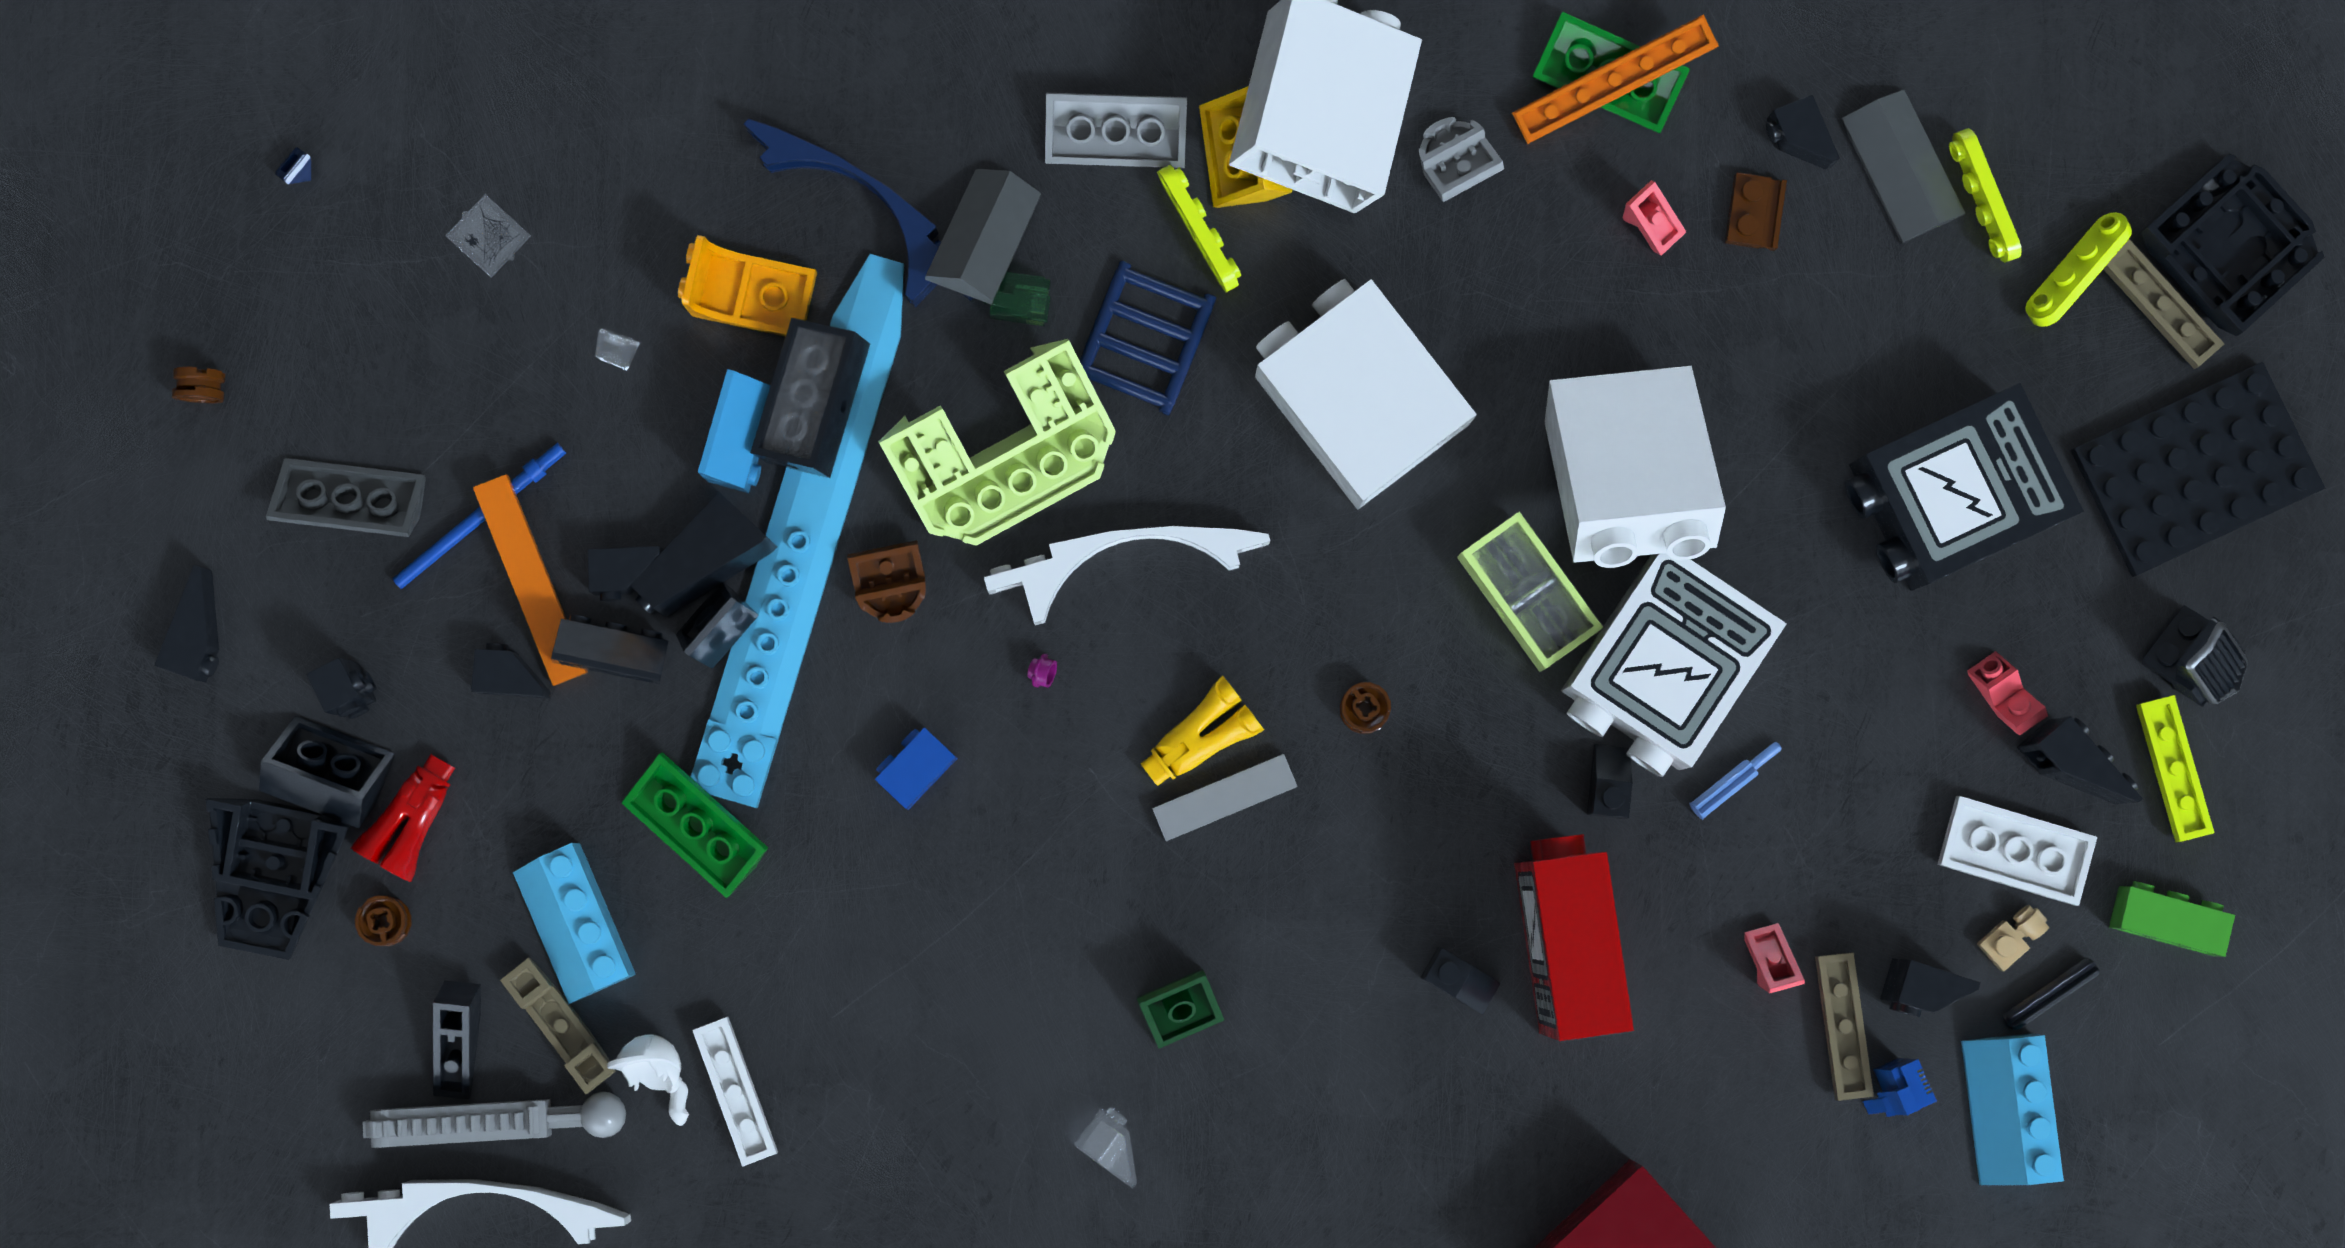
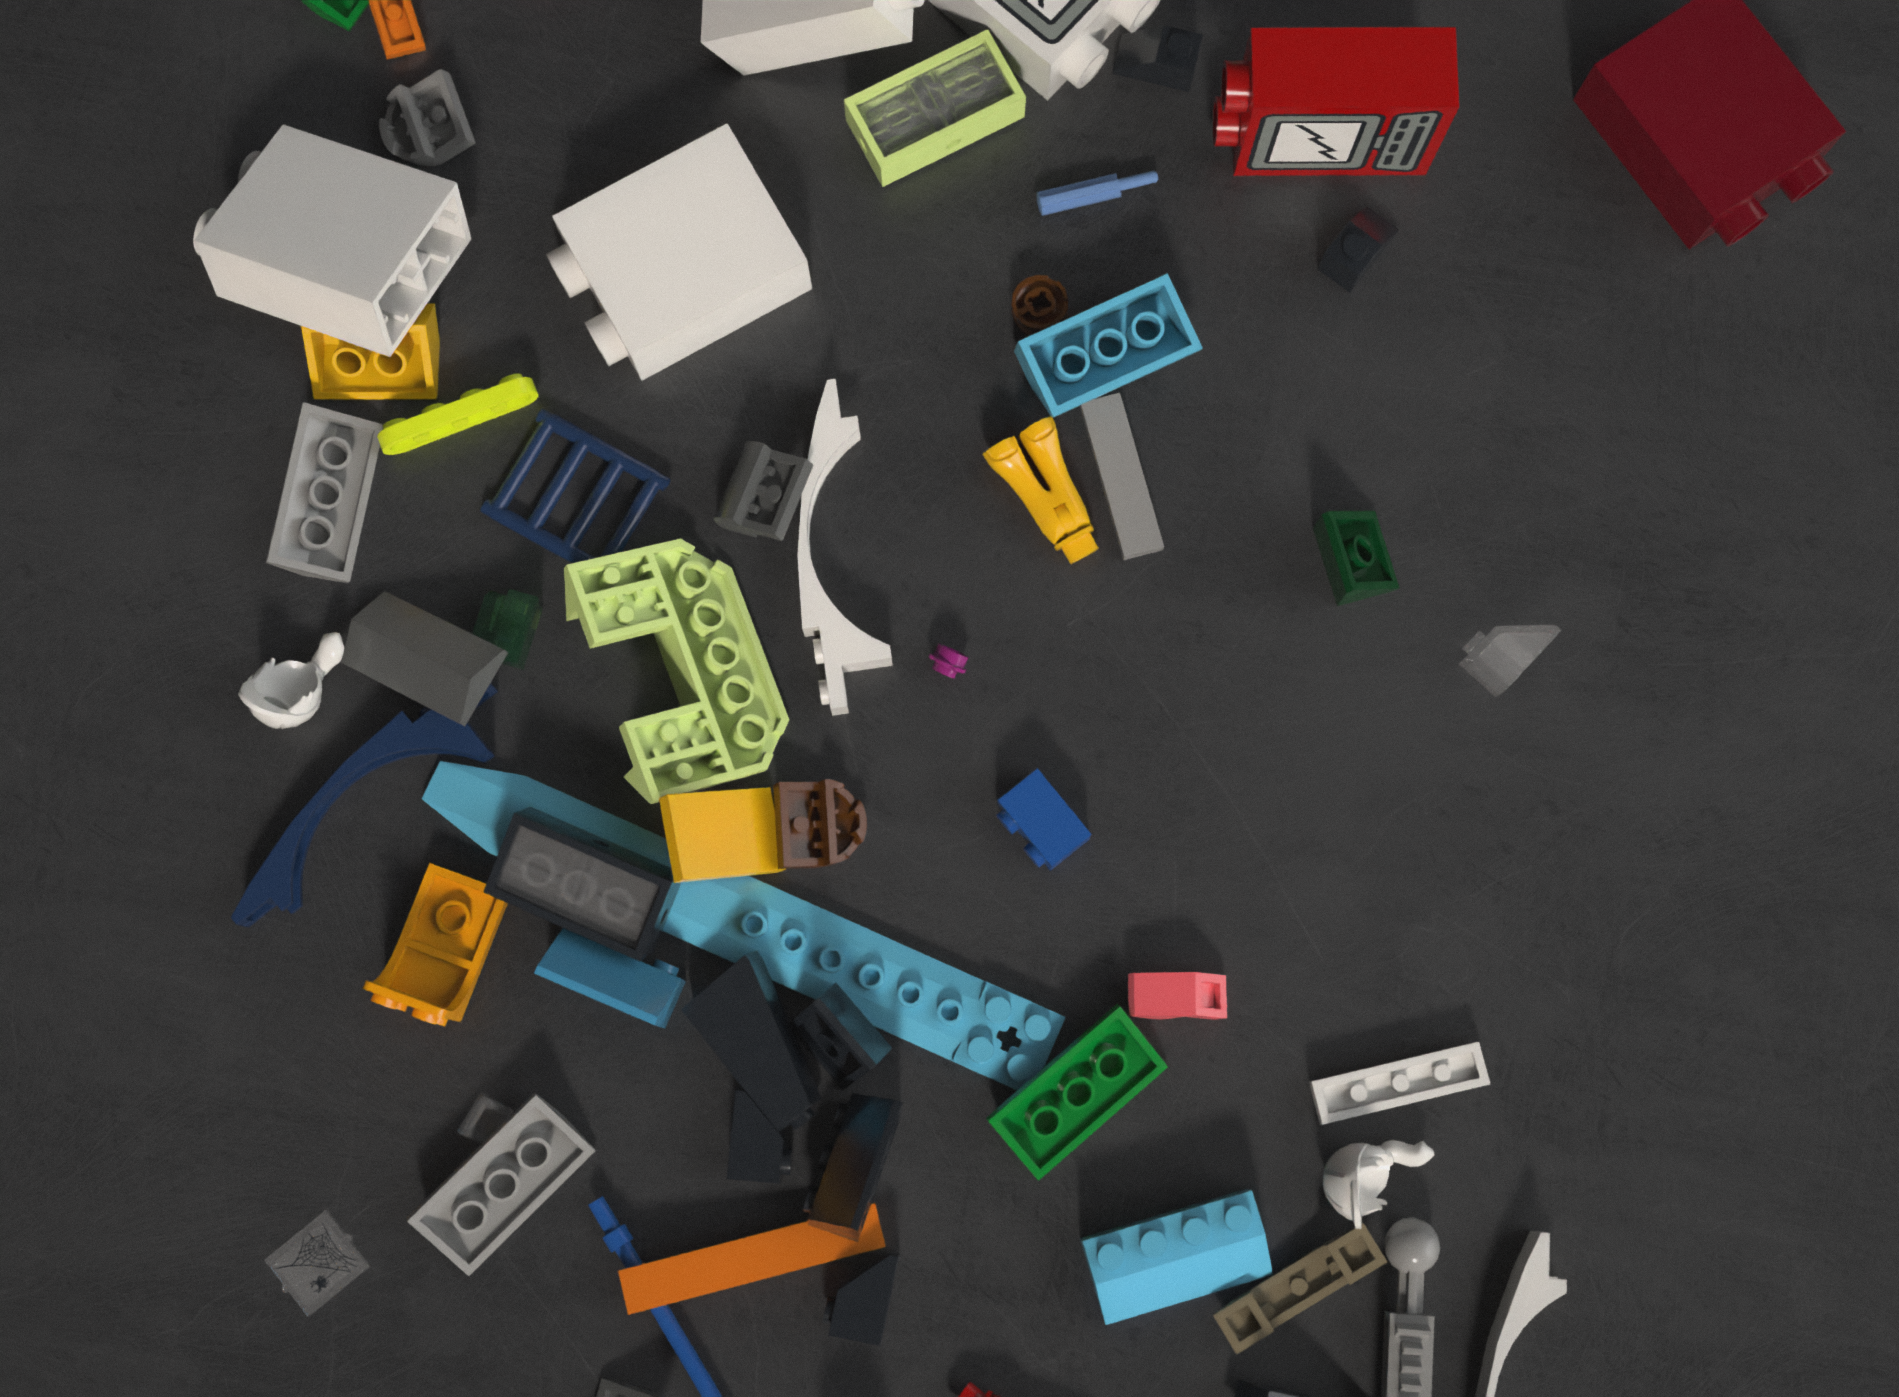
camera: 75 degrees left, 5 degrees down
(566, 371) = (501, 1184): none -> light grey slope
(783, 898) = (1177, 995): none -> coral slope
(865, 502) = (720, 834): none -> yellow tile
(942, 131) = (291, 690): none -> white piece
(1161, 494) = (763, 492): none -> dark grey brick
(1331, 770) = (1107, 346): none -> medium azure slope
(1477, 738) = (1089, 192): none -> medium blue axle

